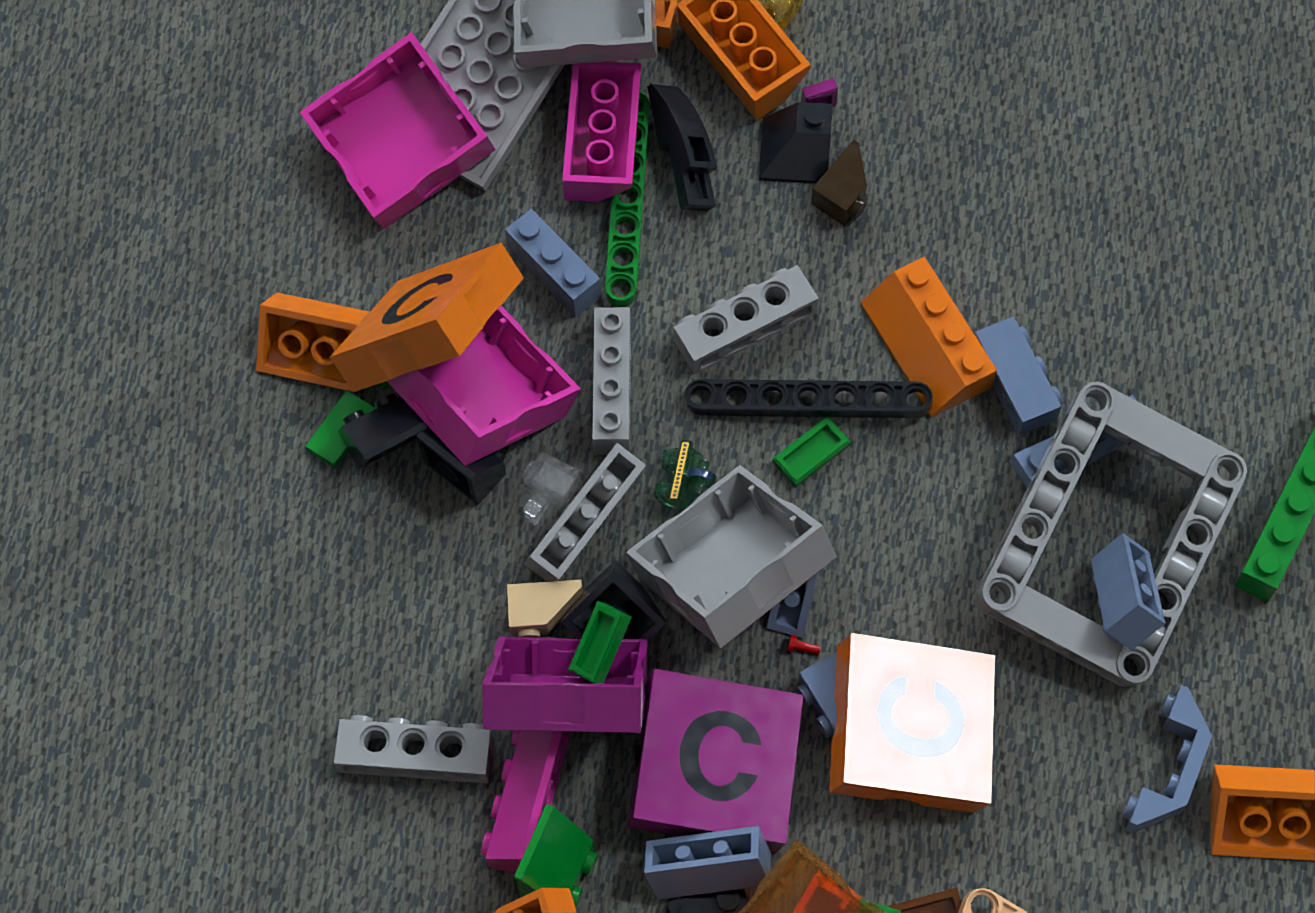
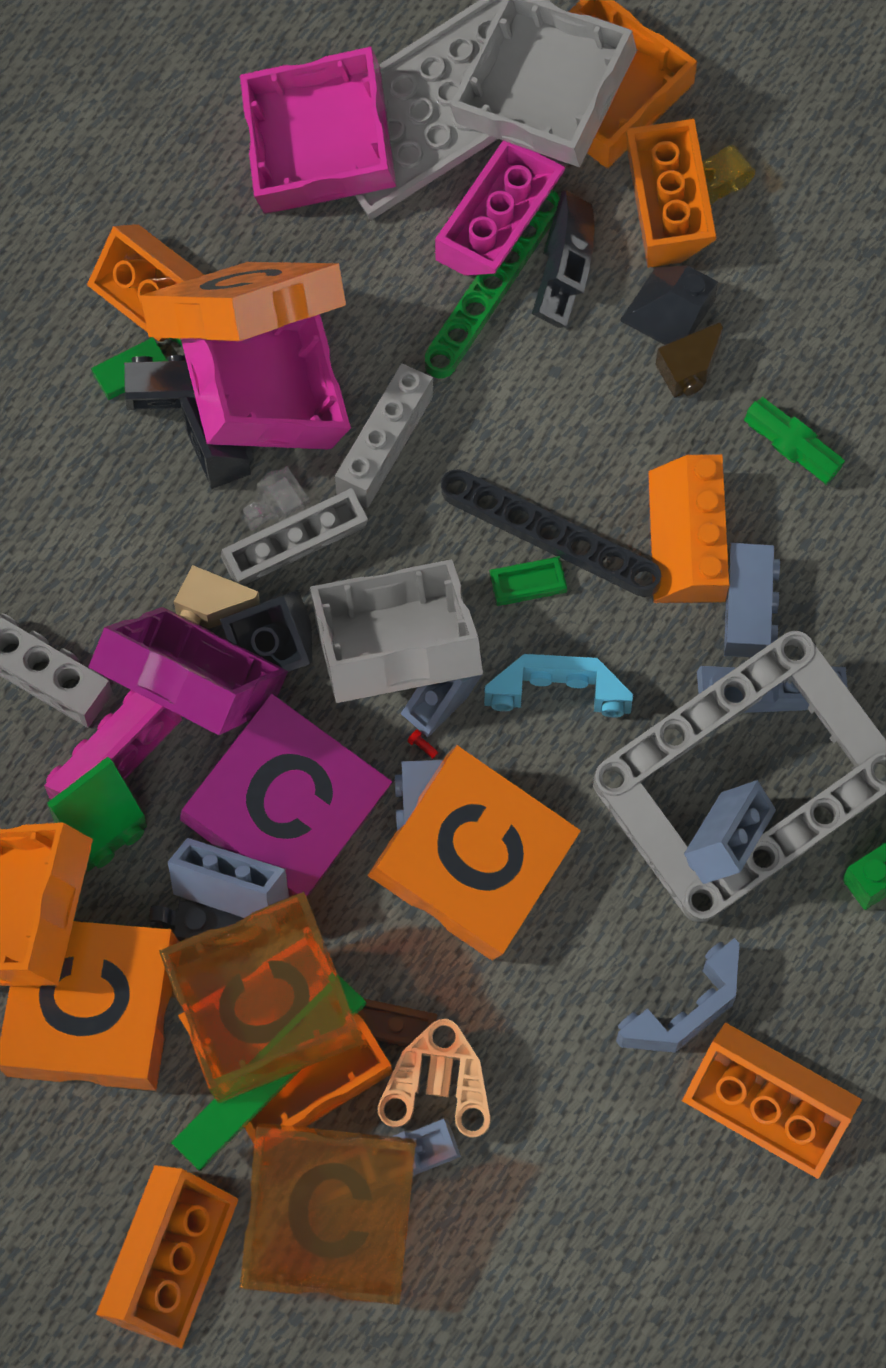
camera: 25 degrees right, 0 degrees up
(553, 262) = (391, 309): sand blue brick -> none
(599, 643) = (241, 651): green tile -> none
(689, 476) = (404, 549): clear green hips -> none
(736, 335) = (520, 449): light grey brick -> none
(822, 92) = (717, 268): magenta tile -> none
(939, 515) = (577, 672): none -> medium azure slope
(973, 214) = (794, 440): none -> green piece

